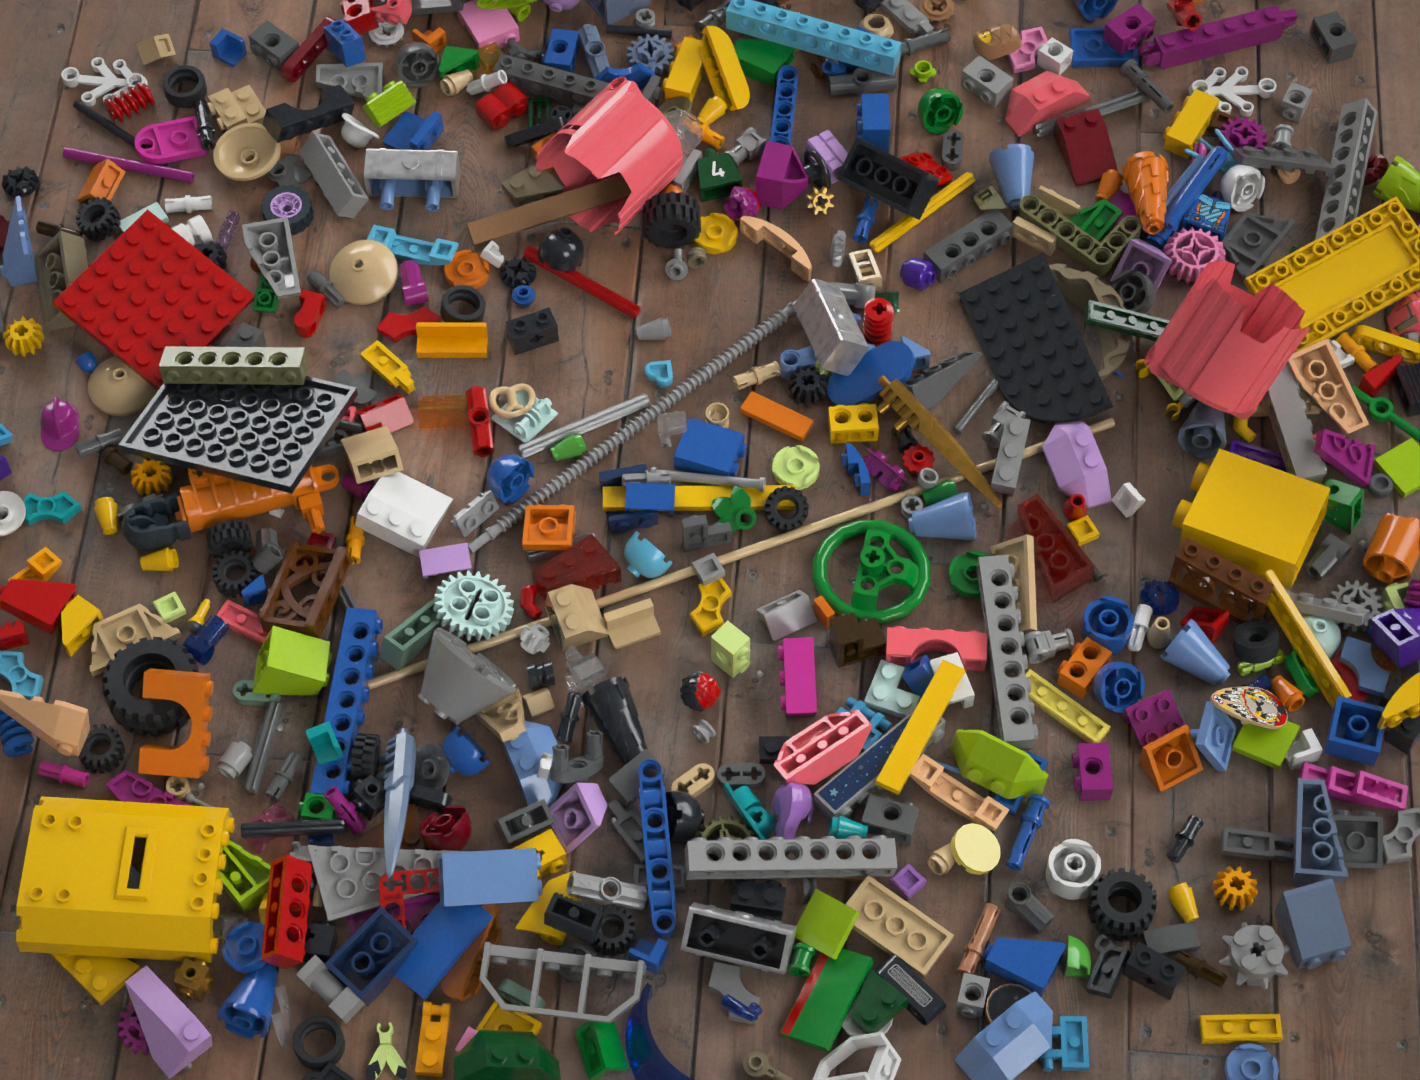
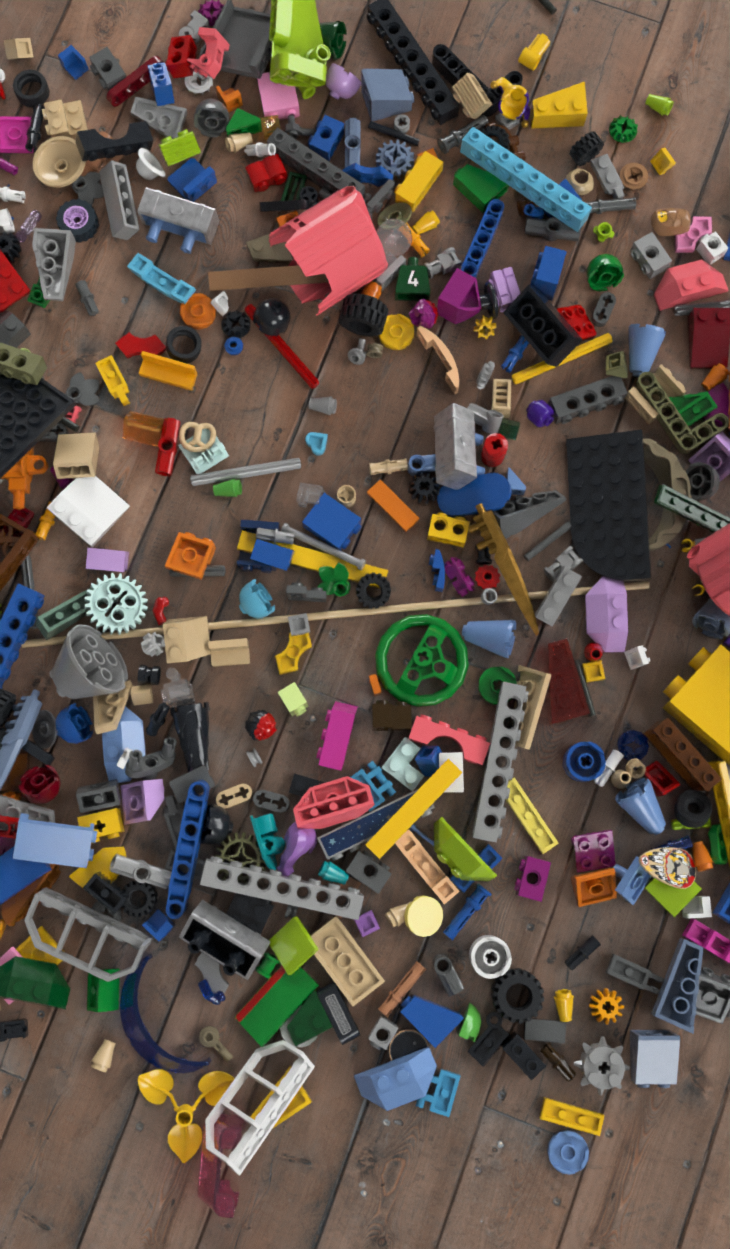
camera: 15 degrees right, 20 degrees up
(311, 313) = (69, 316): red leg -> none
(368, 282) = (126, 297): tan dish -> none
(389, 412) = (99, 420): panel -> none
(413, 287) = (152, 316): magenta piece -> none
(479, 510) = (135, 527): light grey hinge -> none
(509, 477) = (173, 503): blue cylinder -> none
(517, 994) = (55, 930): sand green beam -> none
(532, 331) = (229, 380): black brick -> none
(582, 565) = (200, 596): clear red wedge -> none
(644, 418) = (149, 543): light grey hose -> none
(723, 68) = (447, 188): yellow brick -> none
(787, 614) = (347, 677): light grey panel -> none
(796, 467) = (393, 553): yellowish green tile -> none
(910, 500) = (466, 609): light grey bush -> none
(940, 492) = (497, 609): green cone -> none
(1044, 645) = (531, 761): light grey connector -> none
(1082, 666) = (557, 794): orange brick -> none
(1118, 686) = (574, 816): blue cylinder -> none
(1179, 617) = (635, 763): none -> tan bush

